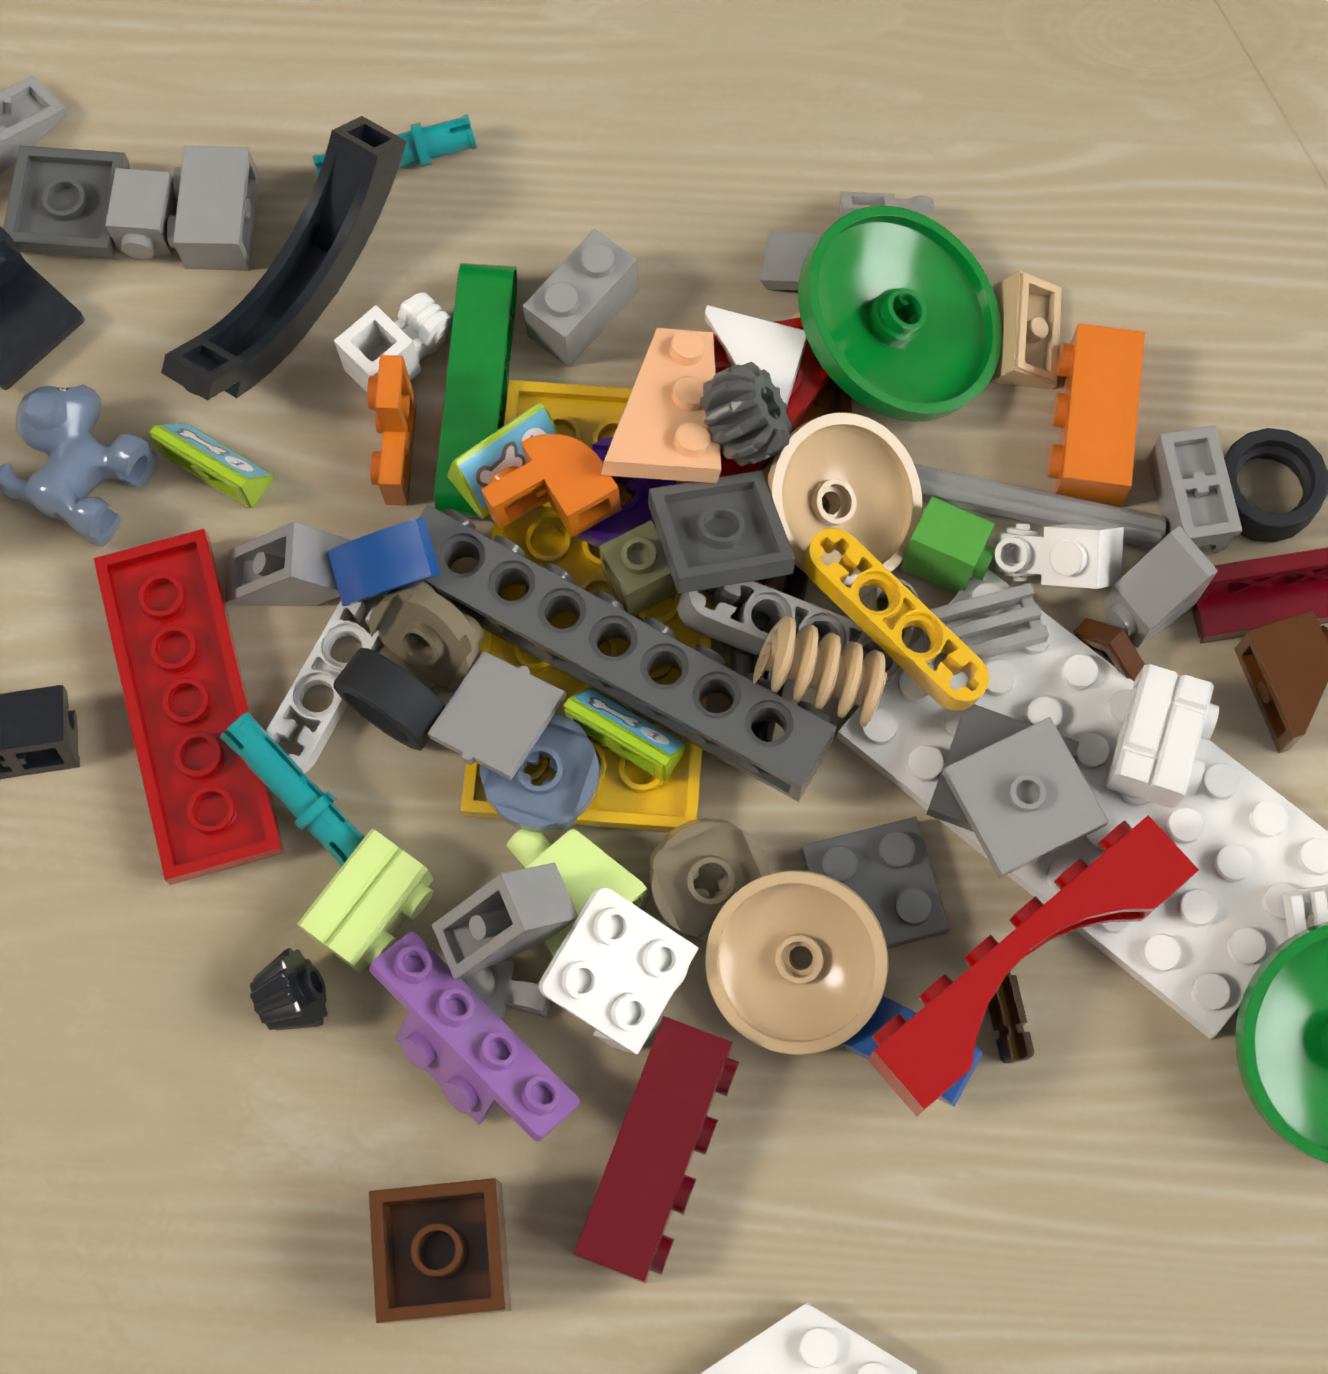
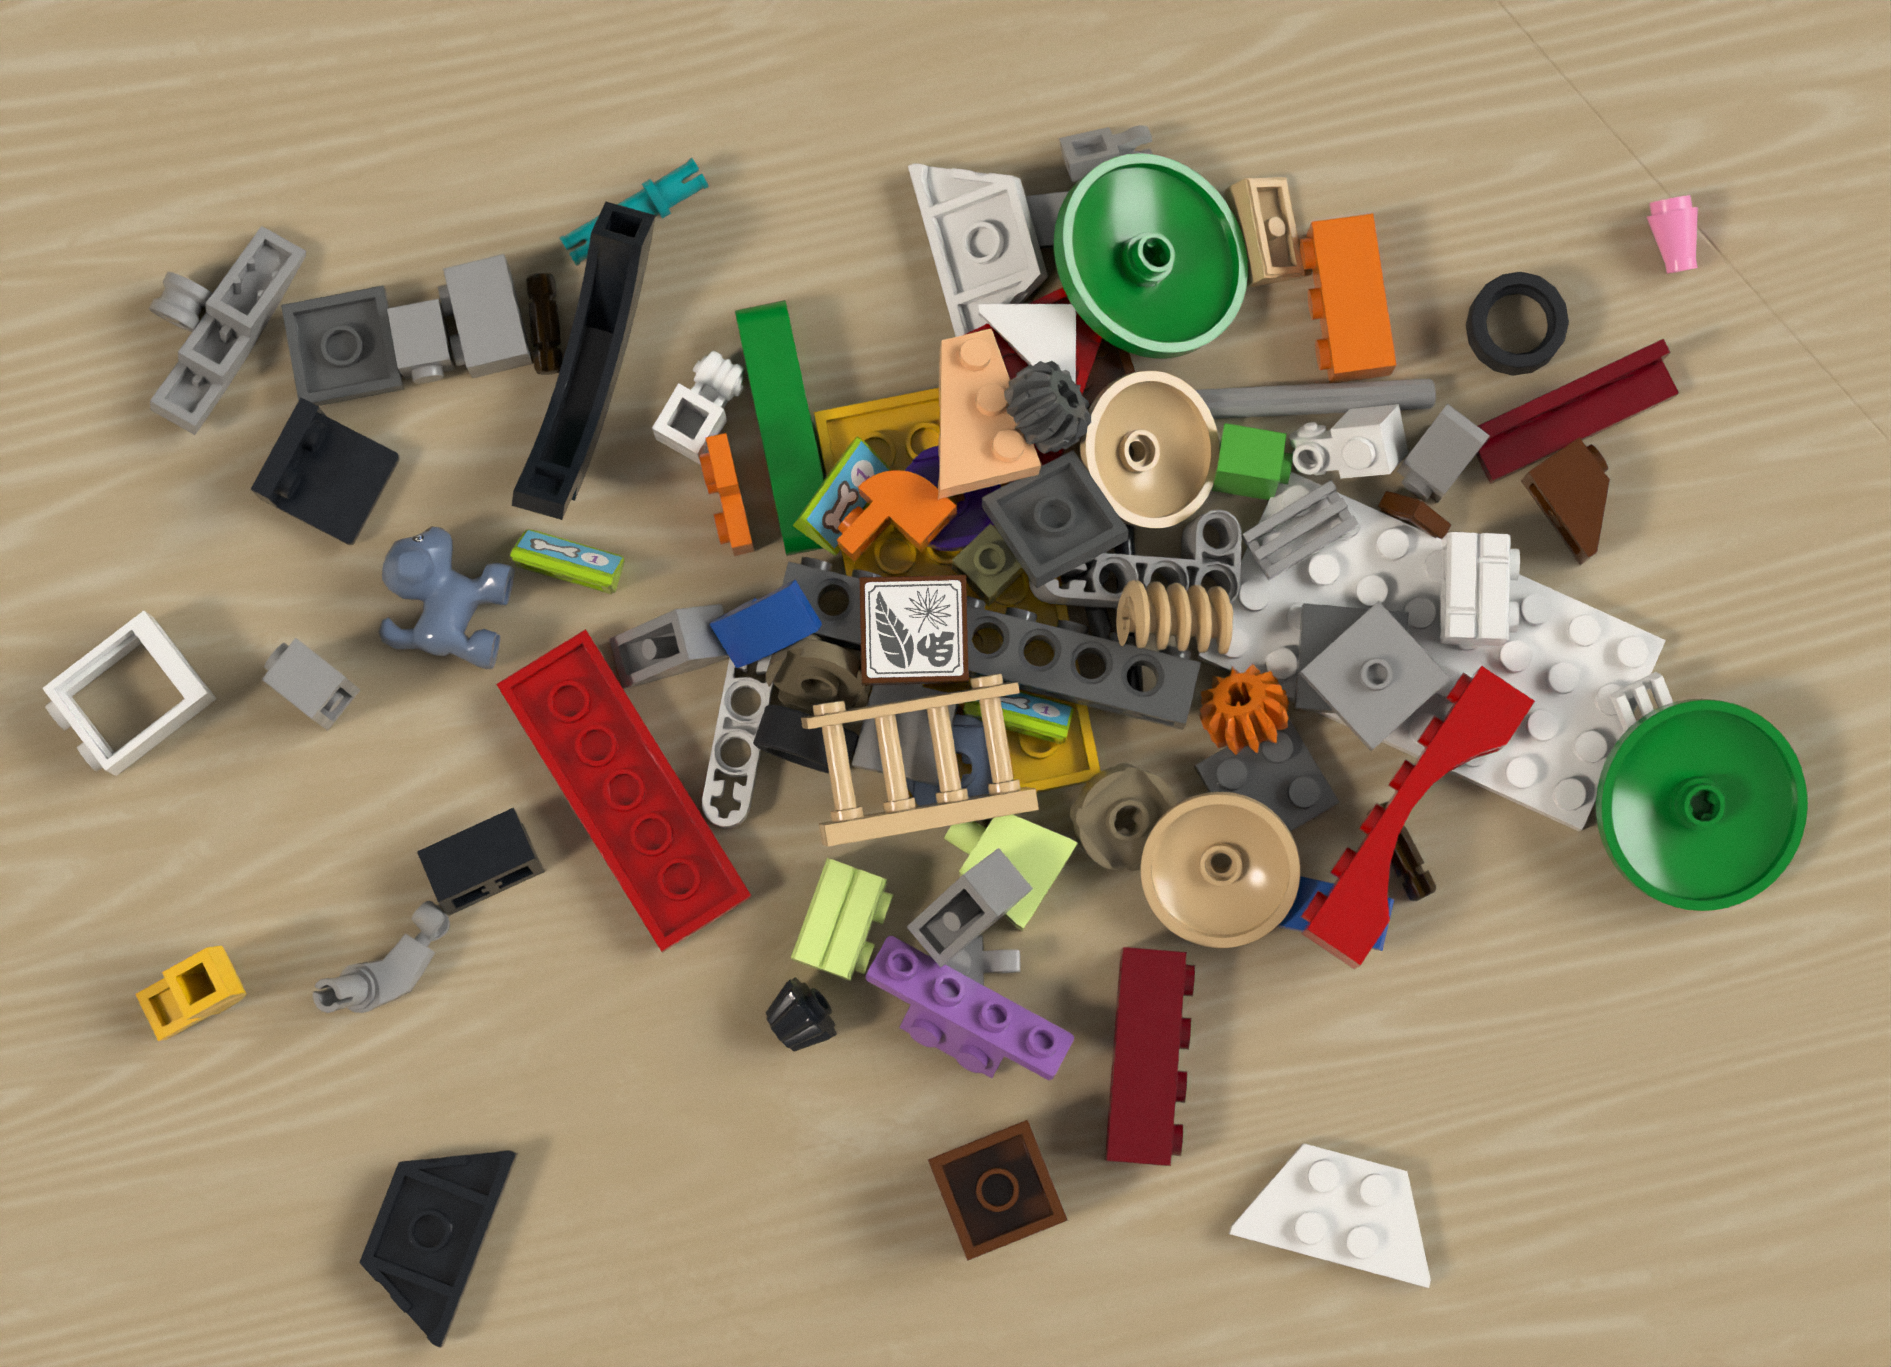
camera: 20 degrees left, 10 degrees up
(271, 228) = (544, 323): none -> dark brown axle
(292, 786) = (738, 836): teal pin -> none
(459, 791) = (900, 810): none -> tan fence
(535, 607) = (914, 630): none -> tile
(581, 297) = (855, 314): light grey brick -> none
(617, 970) = (1075, 921): white bracket -> none
(730, 253) = (978, 239): none -> white wing
(871, 798) = (1244, 709): none -> orange gear
(902, 612) = (1220, 559): yellow beam -> none
(1195, 486) = (1452, 350): light grey hinge -> none

